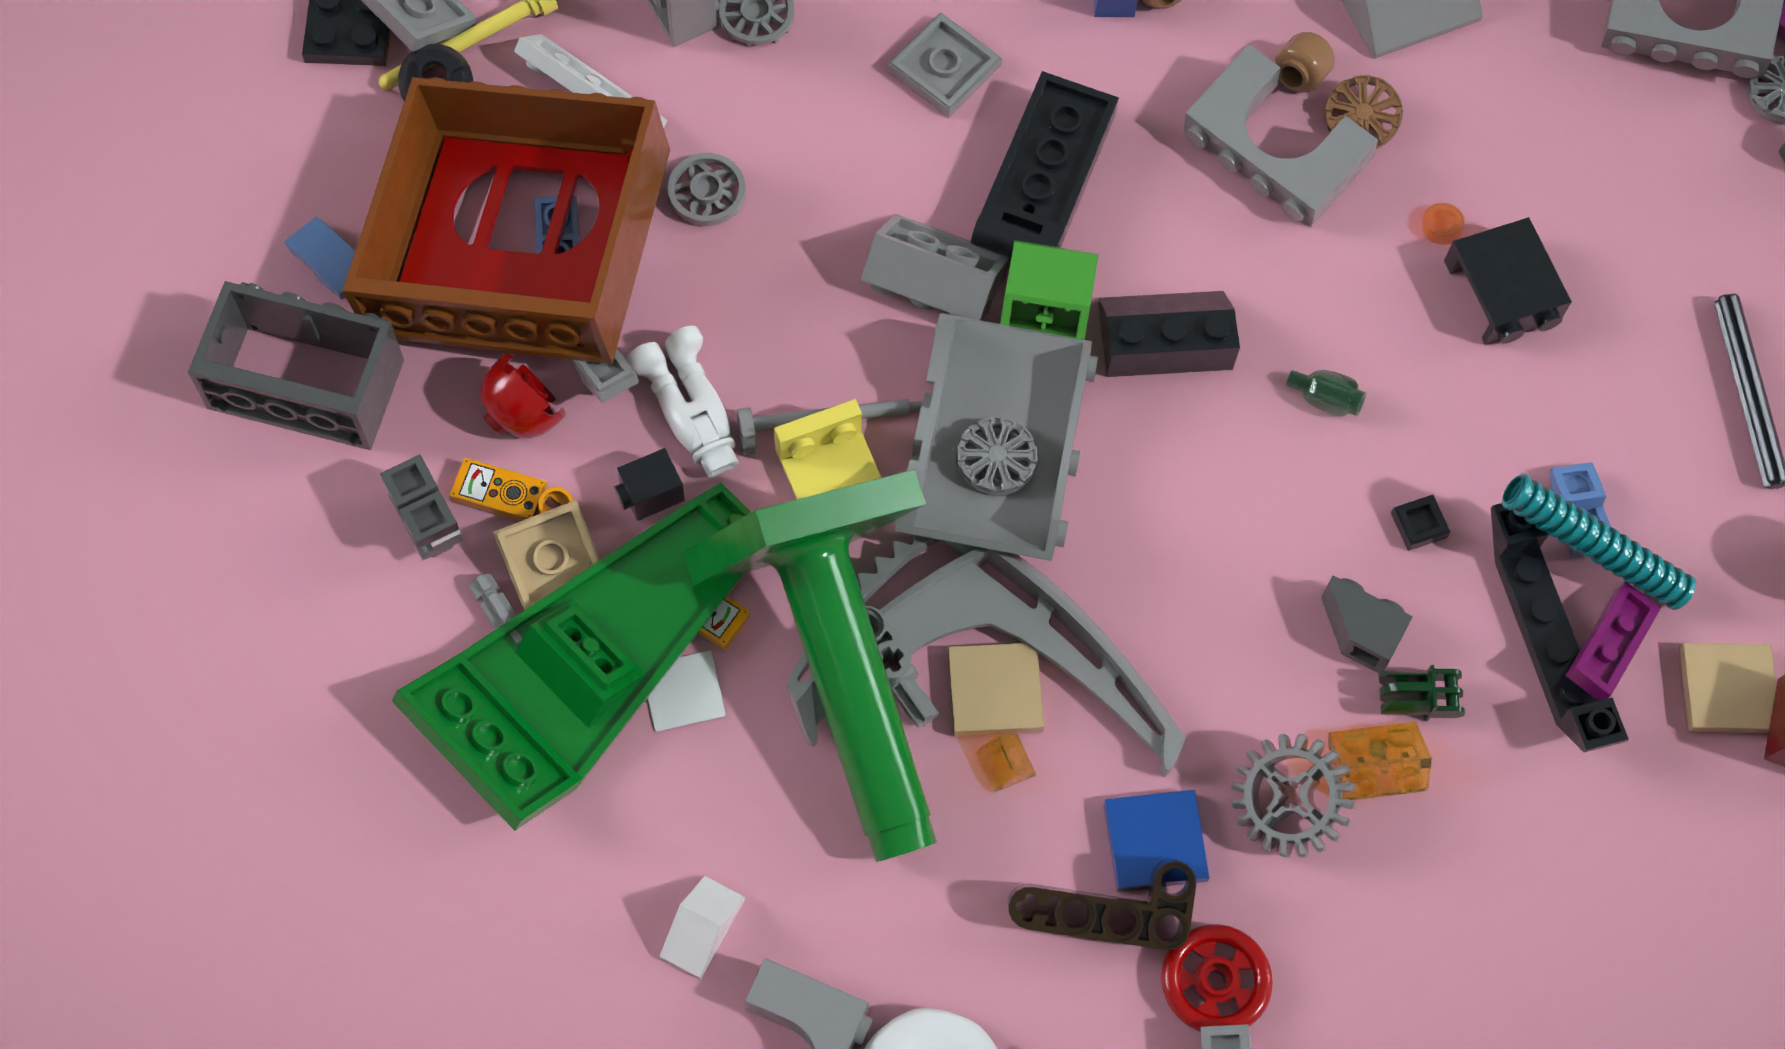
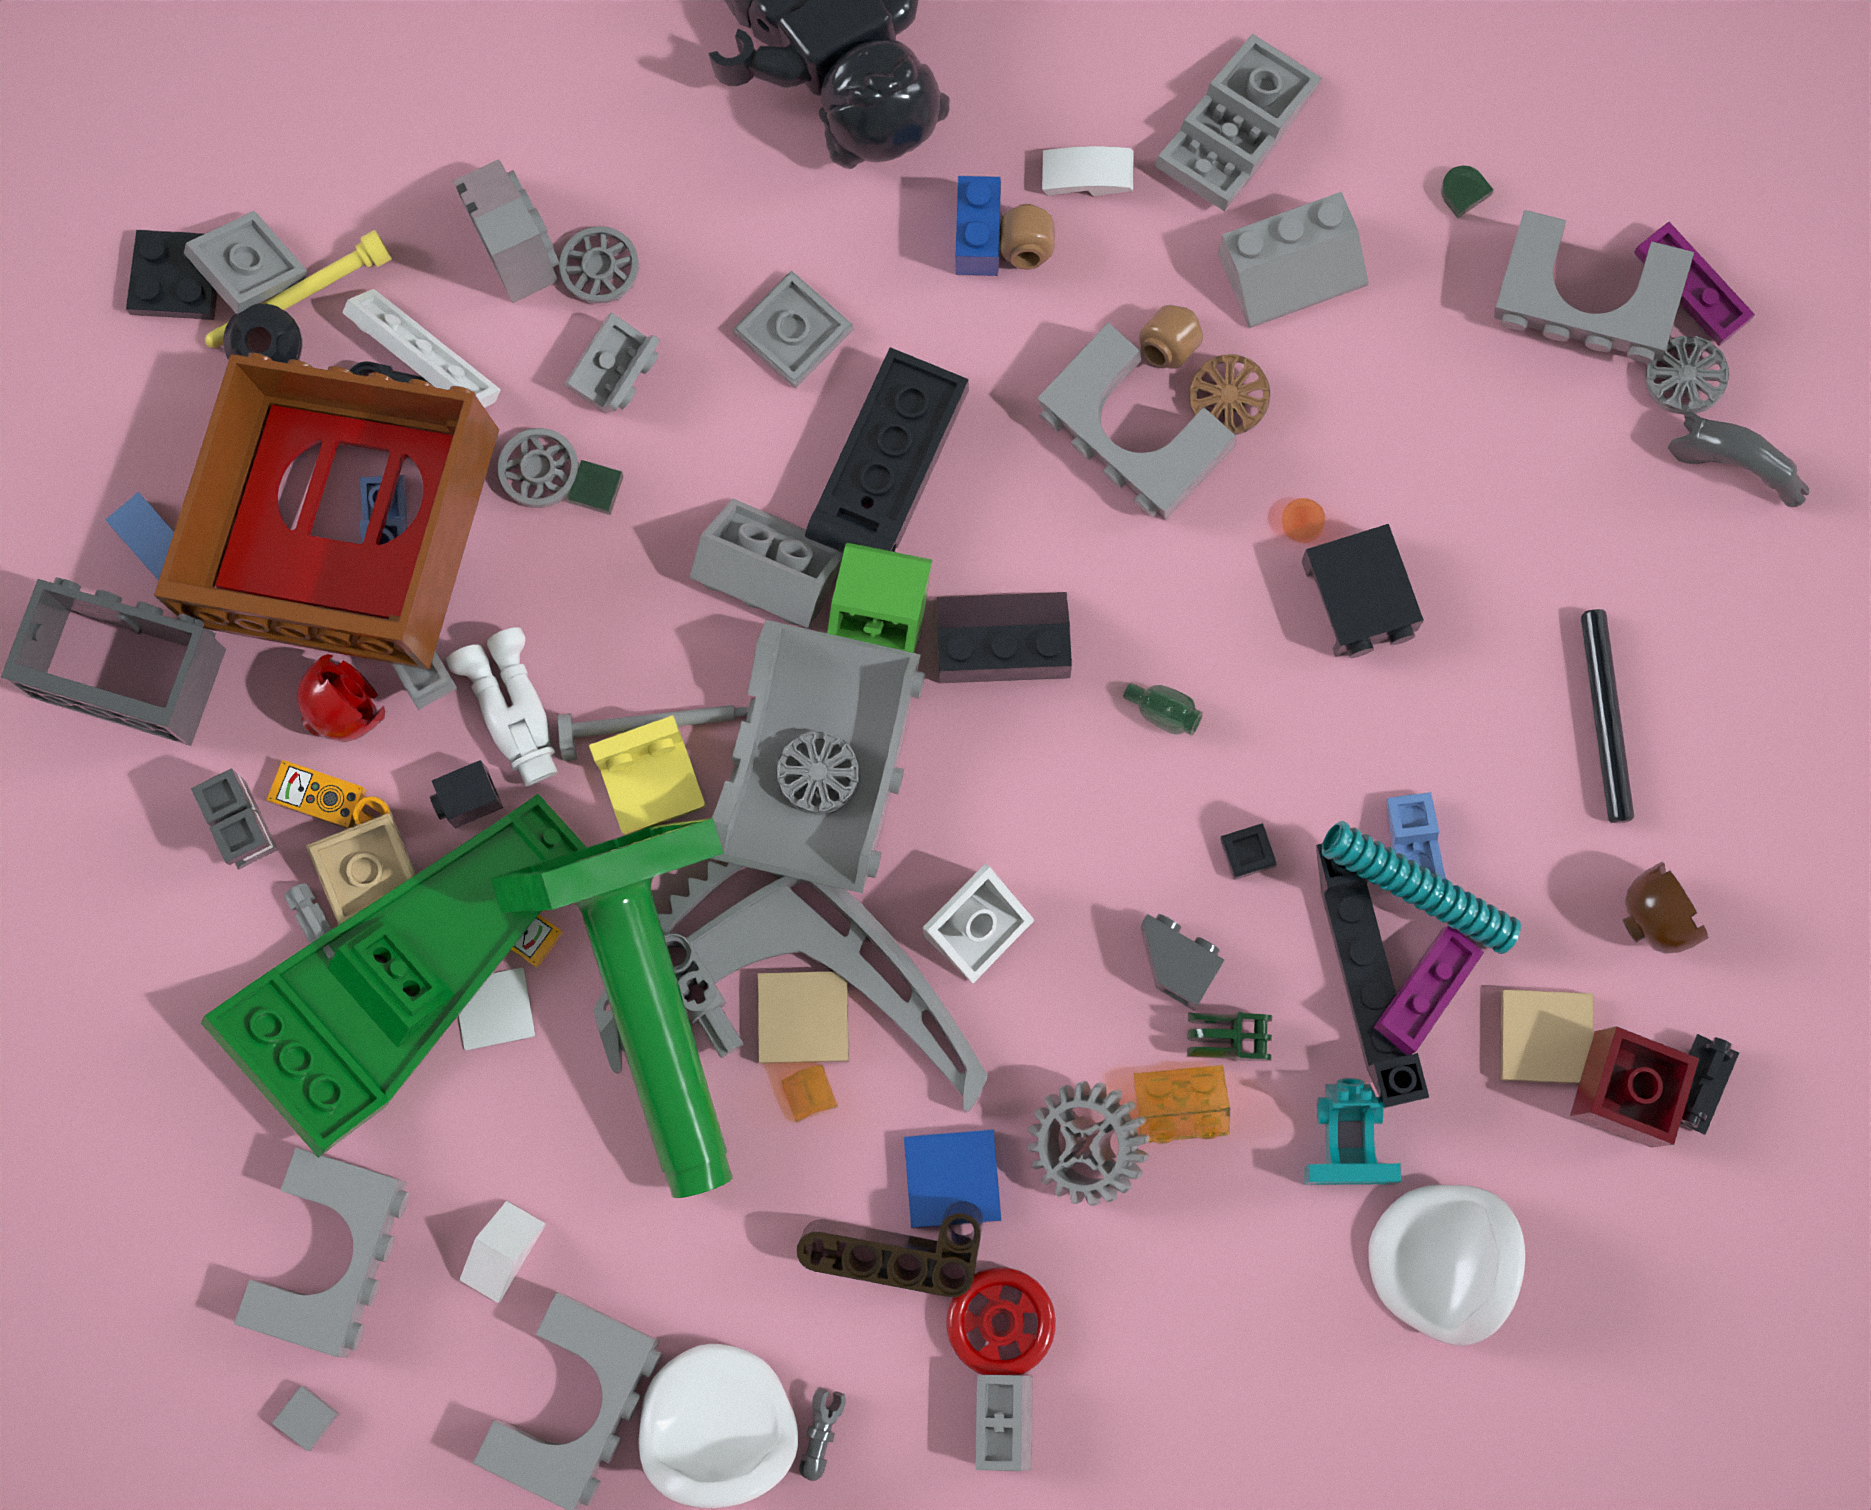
camera: 10 degrees right, 10 degrees up
(527, 995) = (332, 1317): none -> light grey arch
(762, 206) = (595, 487): none -> clear green tile
(774, 95) = (612, 365): none -> light grey bracket
(1163, 593) = (977, 924): none -> white slope
(1559, 755) = (1349, 1102): none -> teal tile
(1664, 902) = (1449, 1261): none -> white piece

